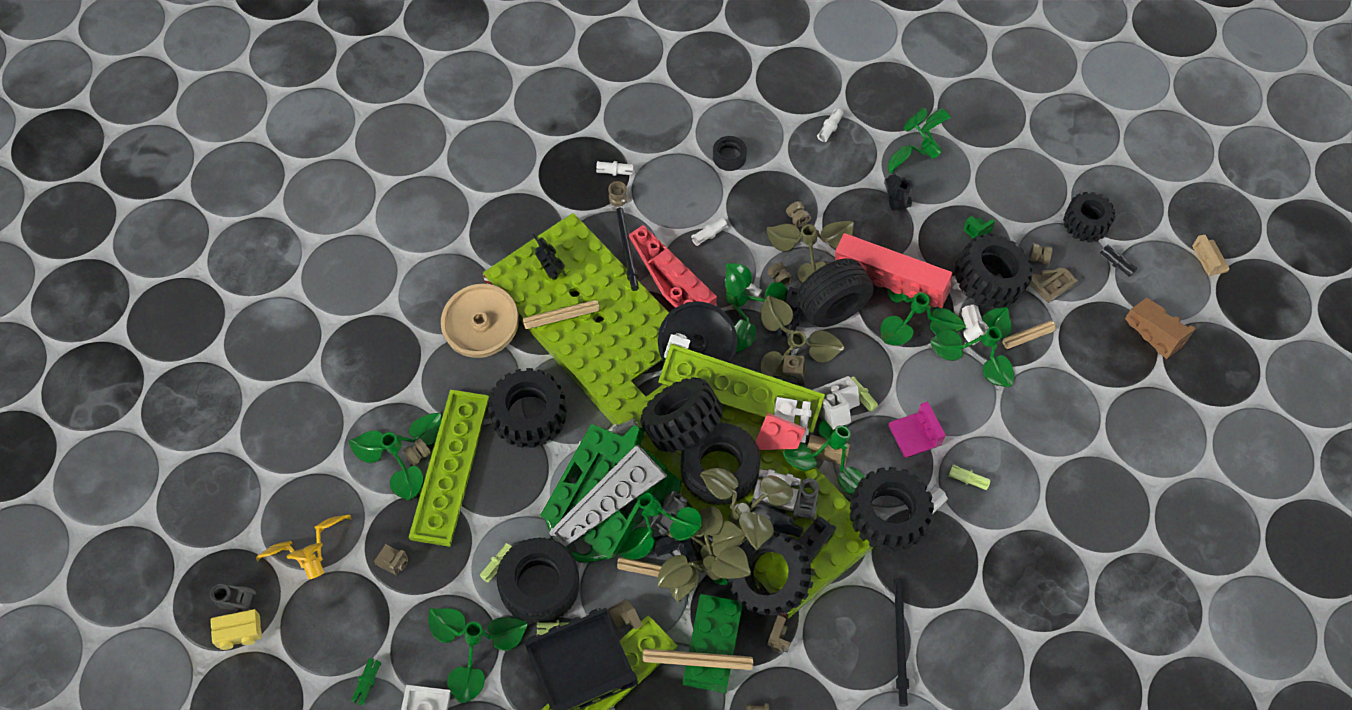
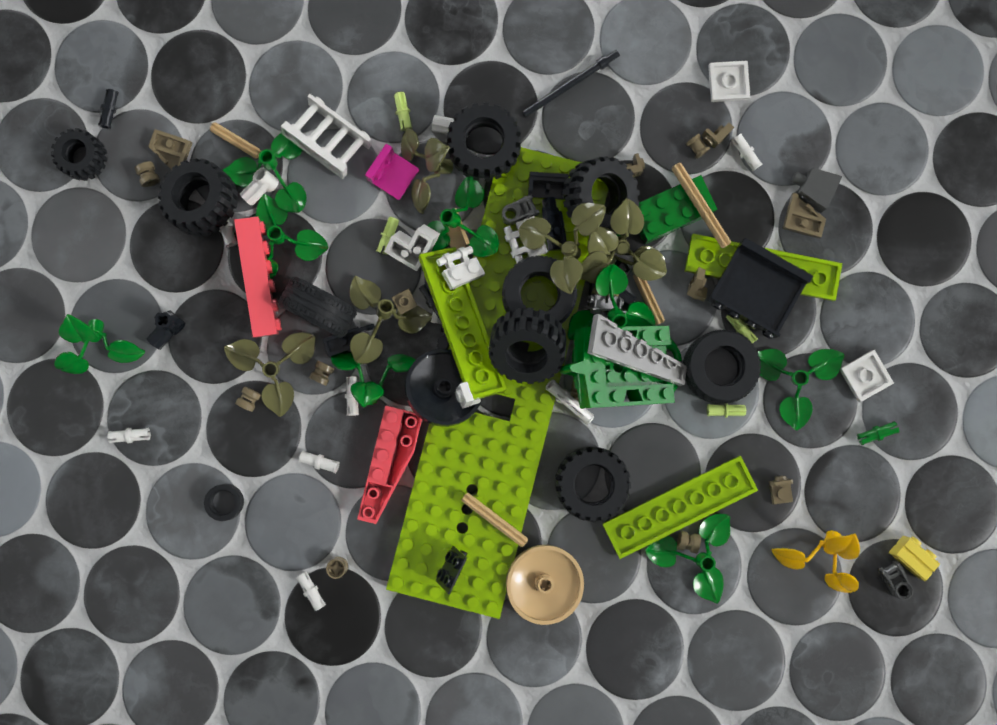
camera: 125 degrees left, 25 degrees up
(632, 273) = (414, 490): black bar -> none
(779, 434) = (481, 266): coral wing -> none
(904, 453) = (434, 156): none -> olive plant
(970, 386) = (323, 154): none -> white fence
(978, 226) = (154, 241): green panel -> none
(1158, 328) = (159, 39): medium nougat wedge -> none
(1210, 256) = (50, 38): tan panel -> none

